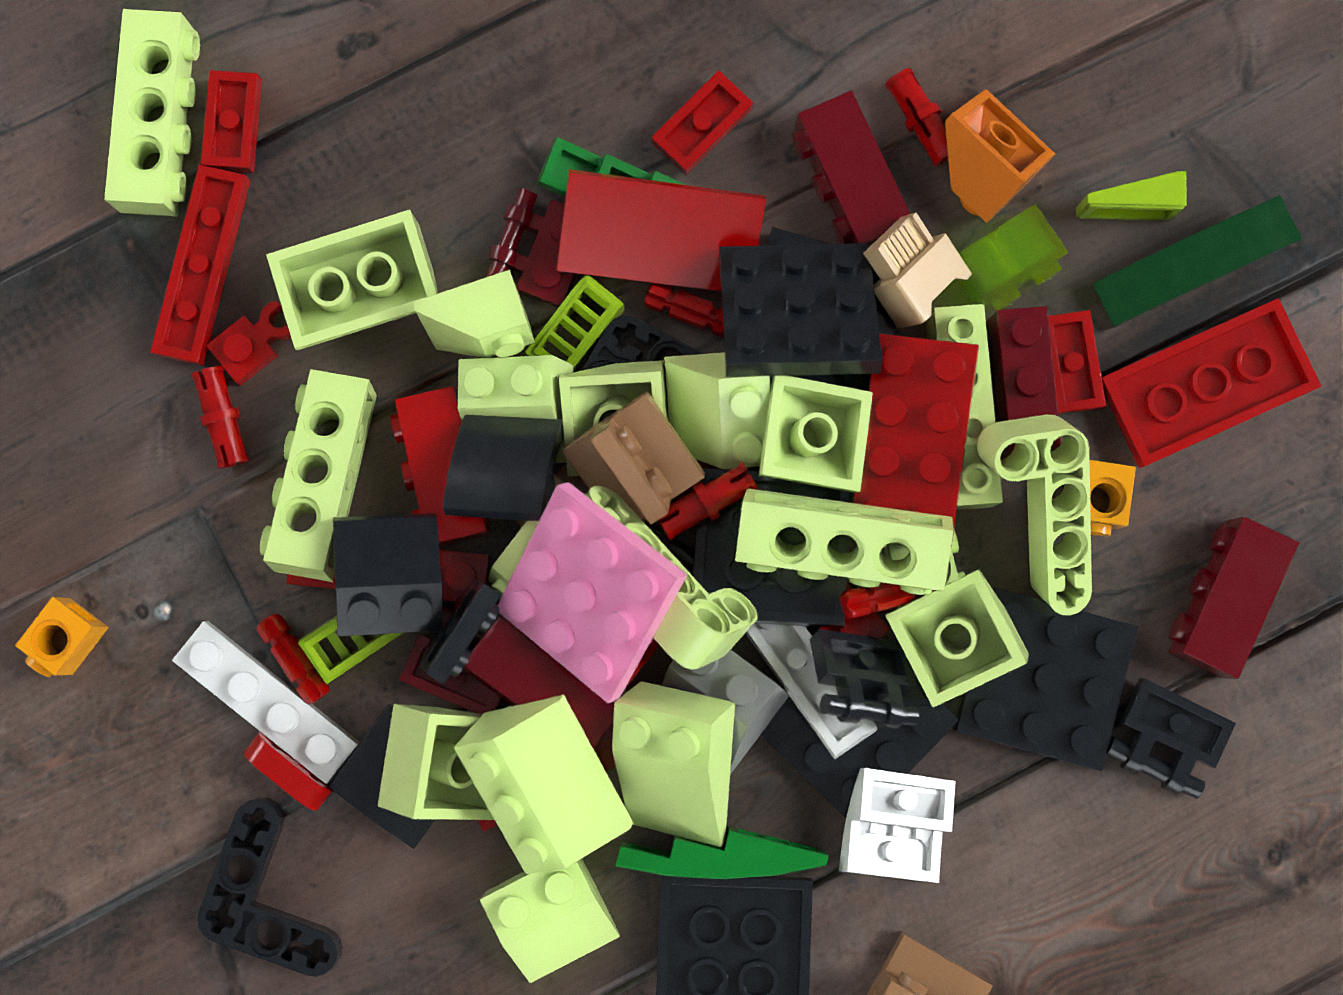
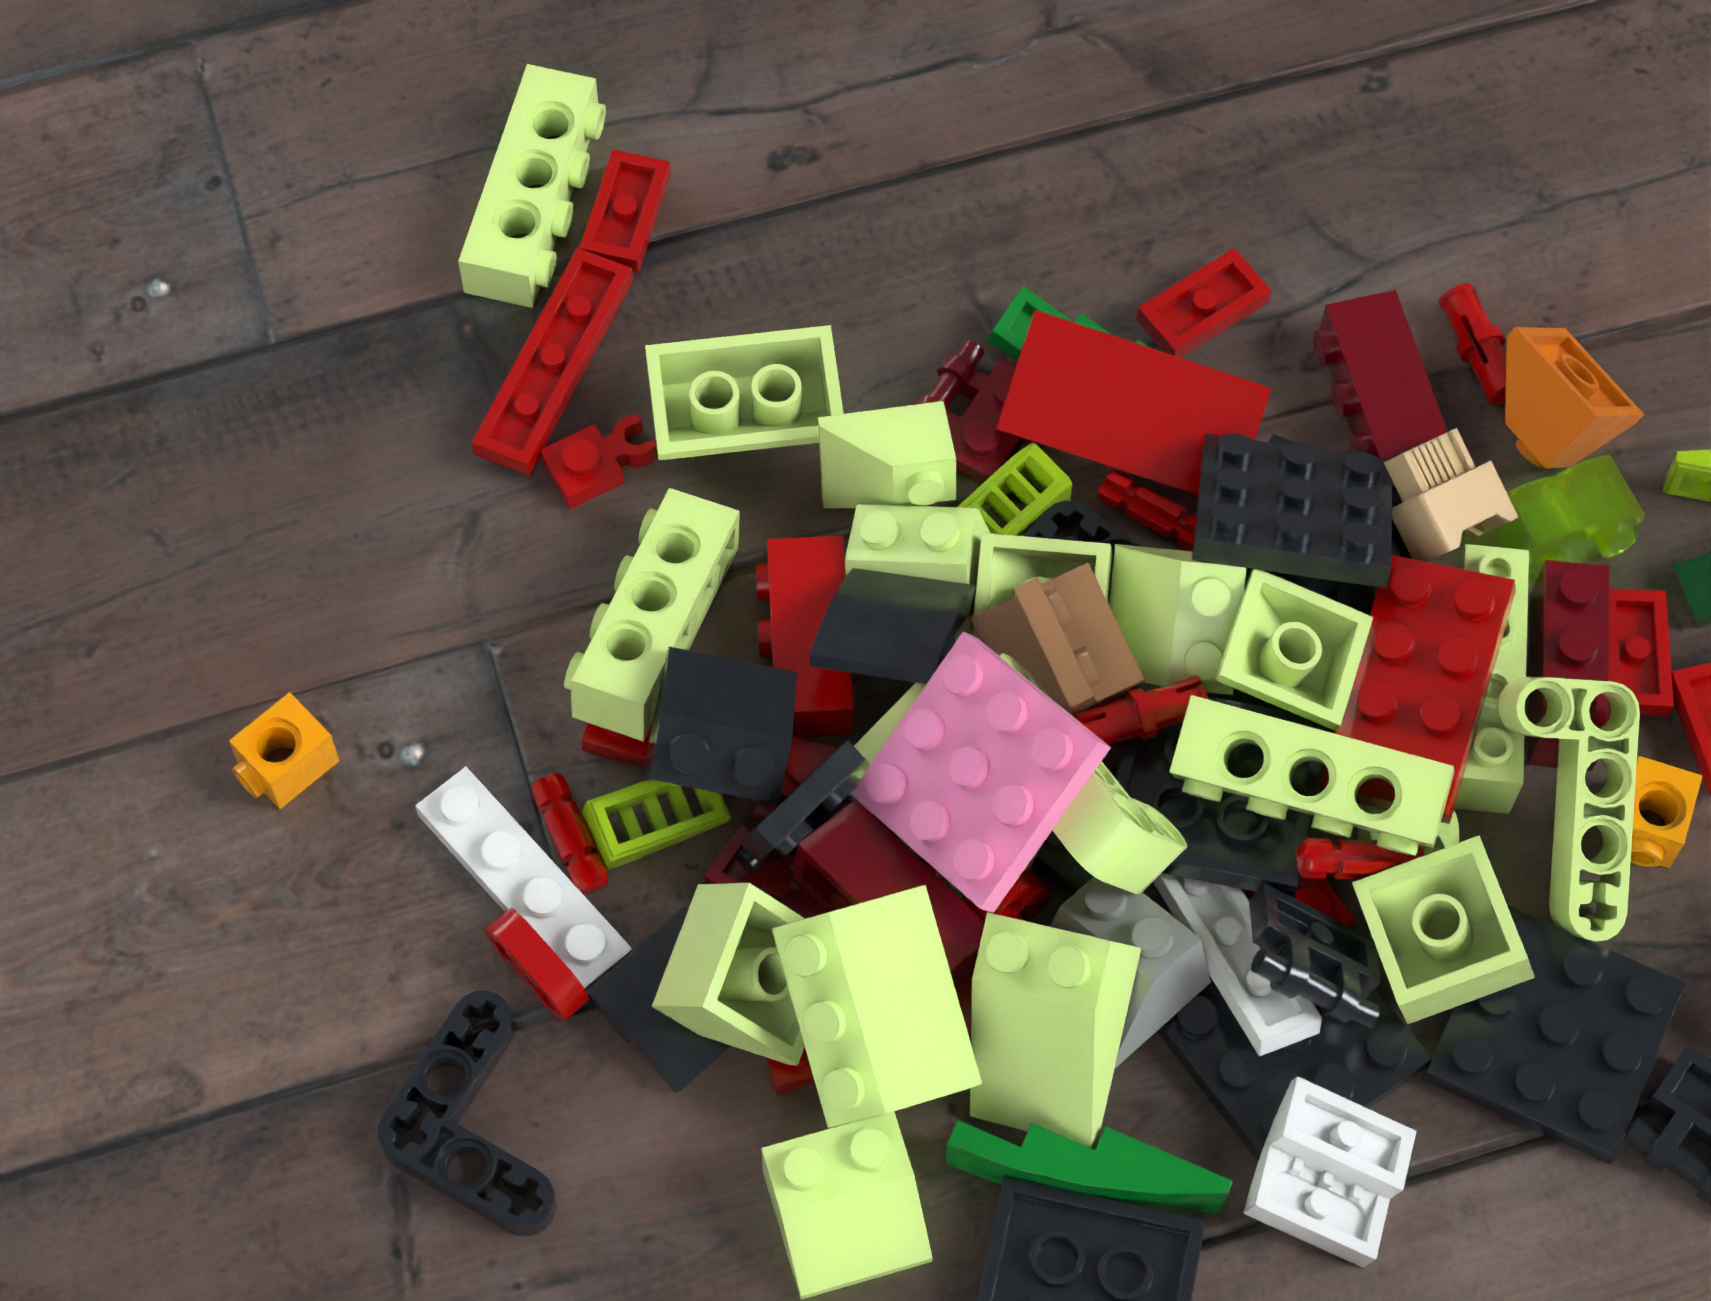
camera: 10 degrees right, 20 degrees down
(220, 417) = (539, 534): red pin -> none

